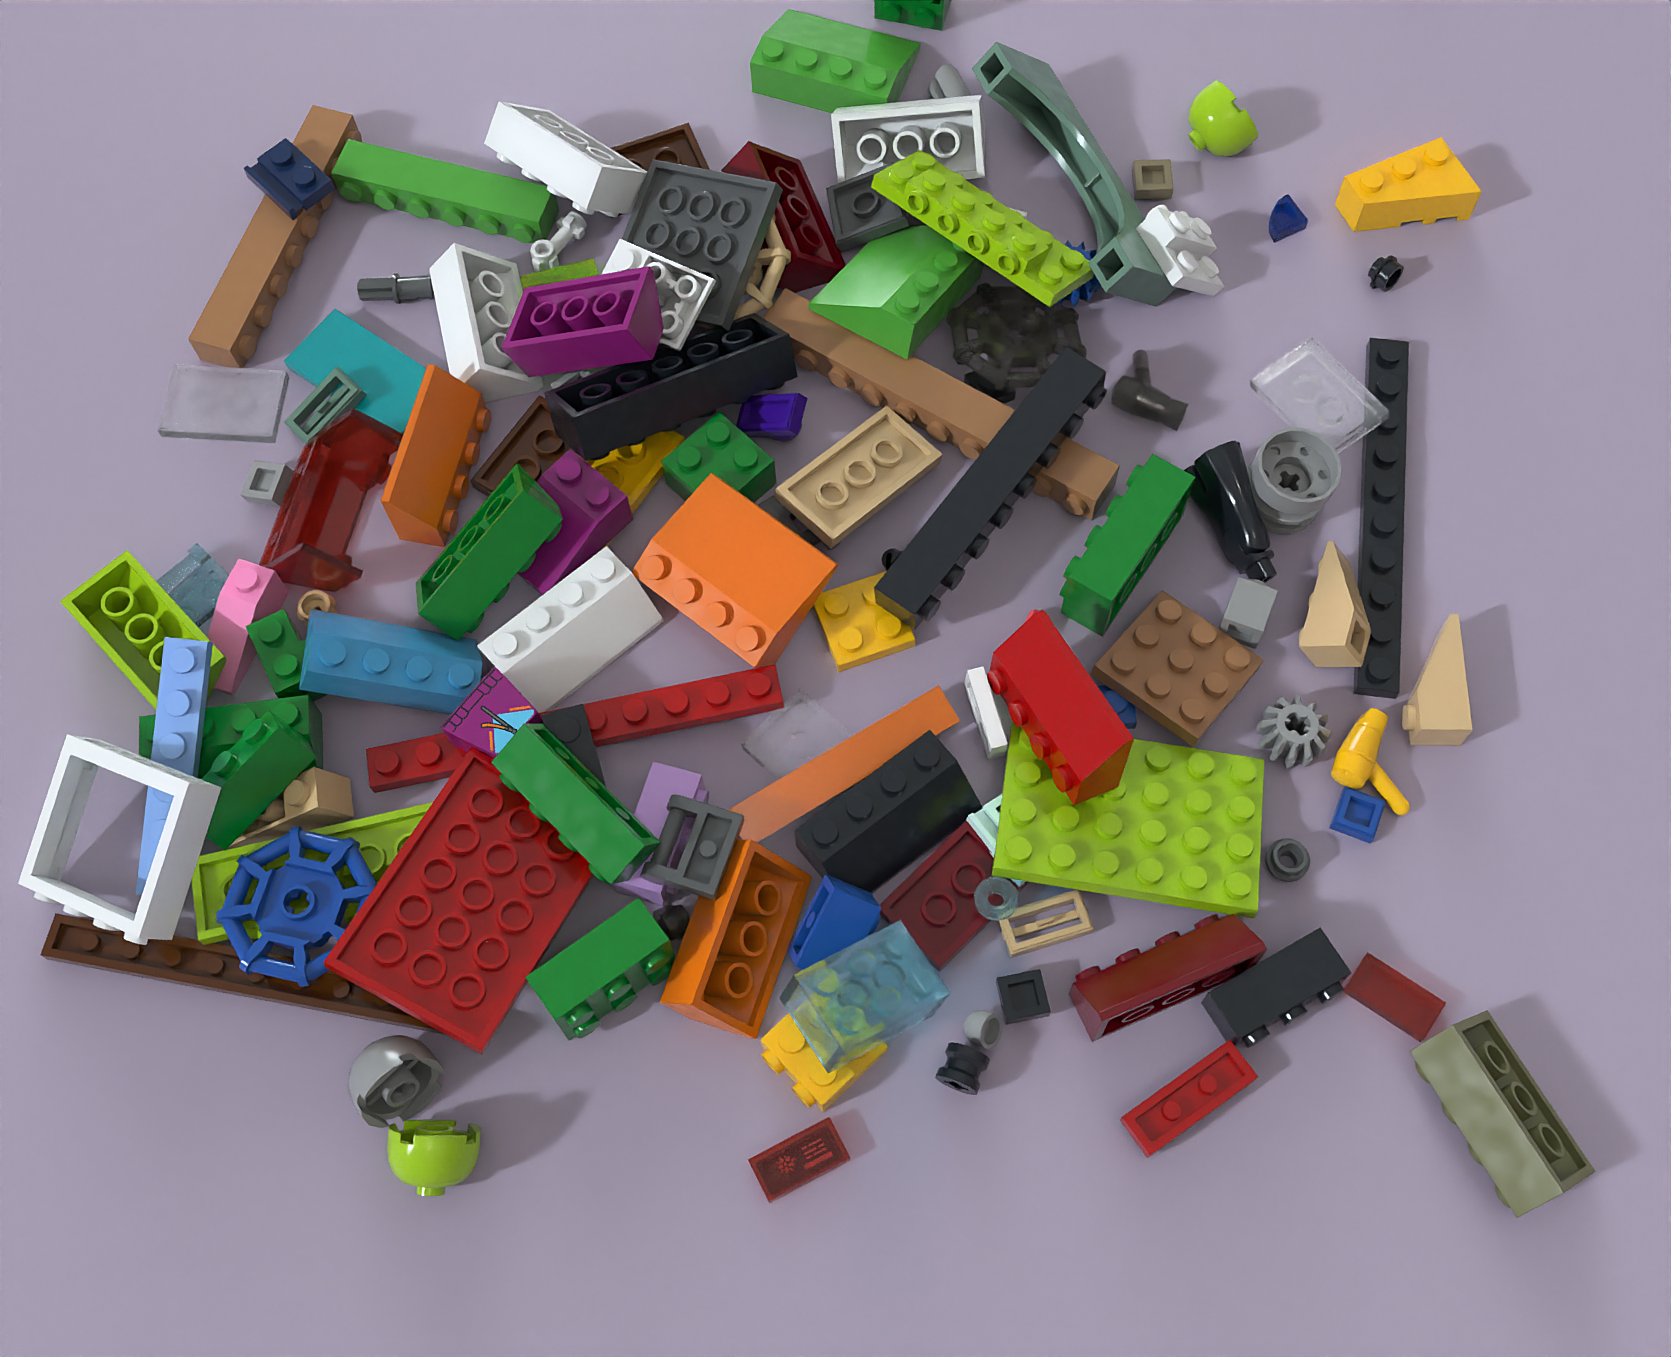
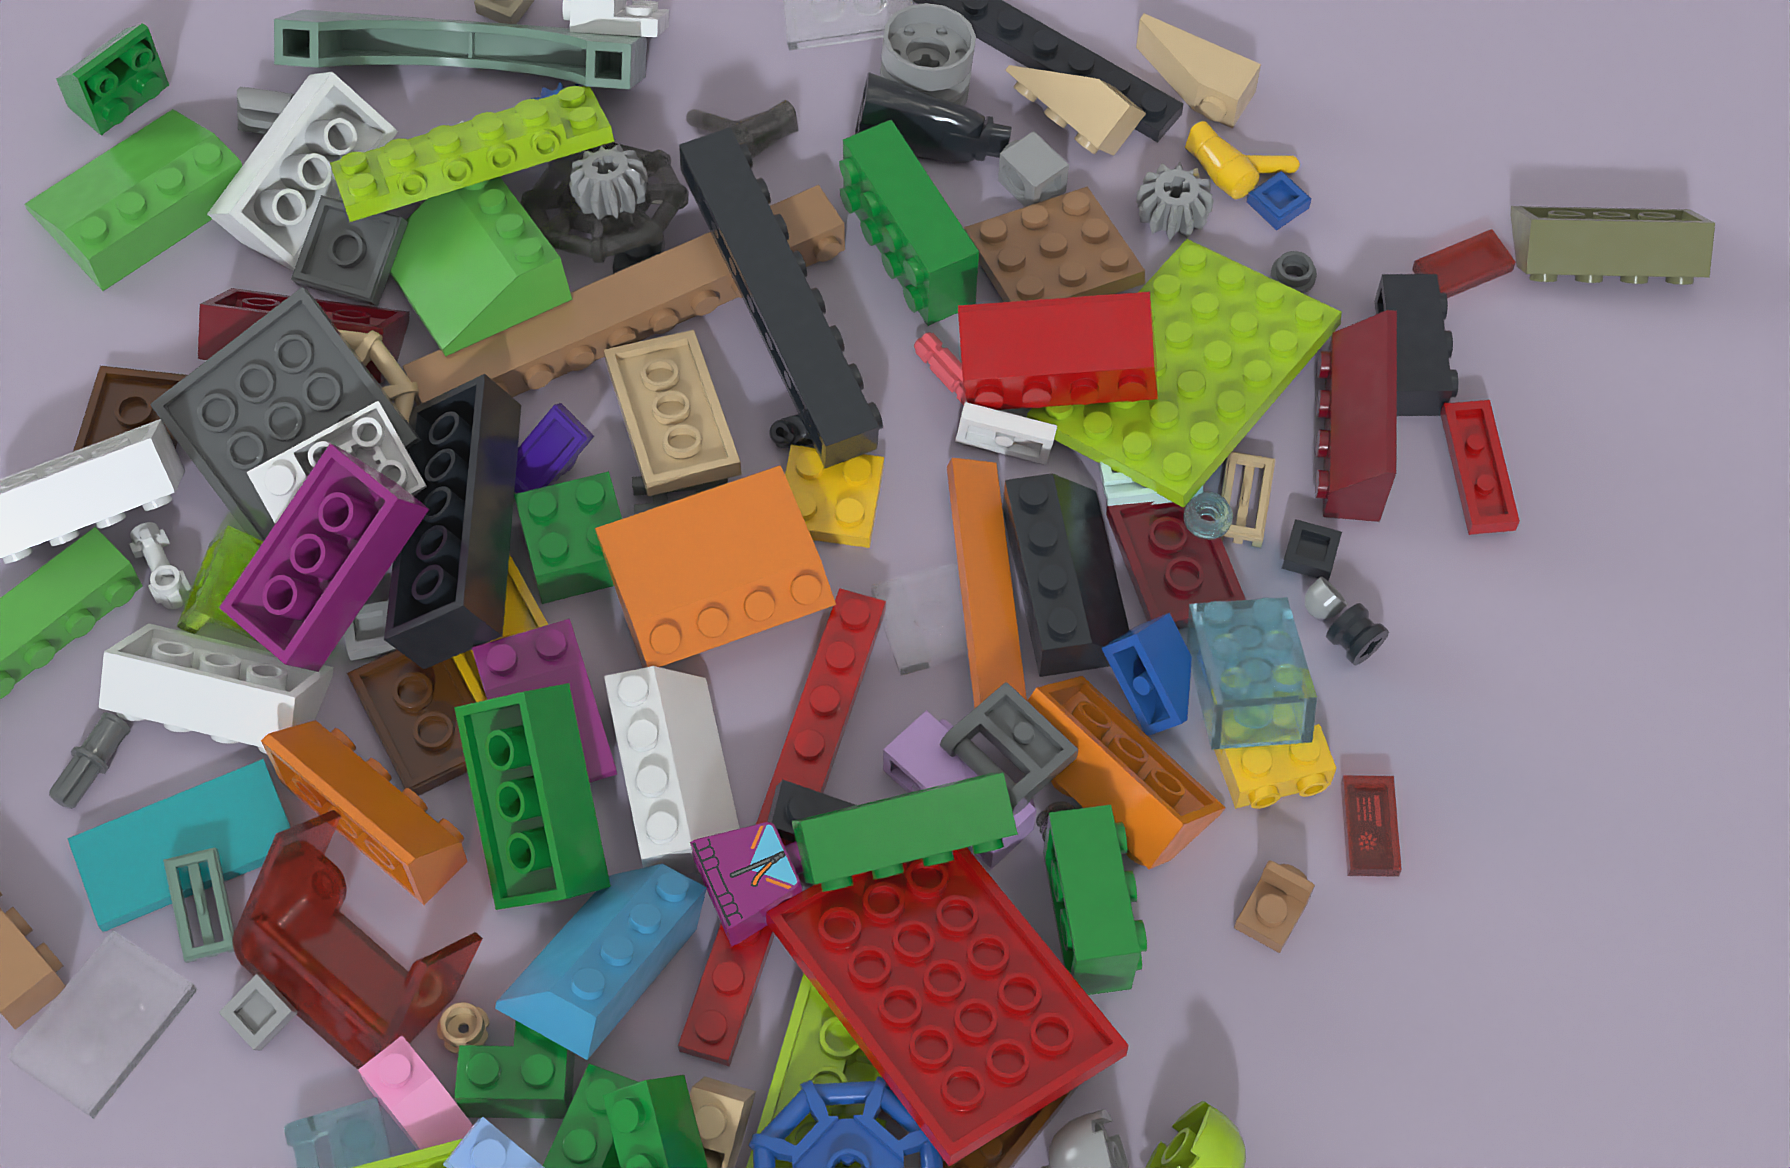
camera: 65 degrees left, 5 degrees down
(685, 1115) = (1275, 905): none -> medium nougat bracket
(1016, 324) = (608, 182): none -> light grey gear

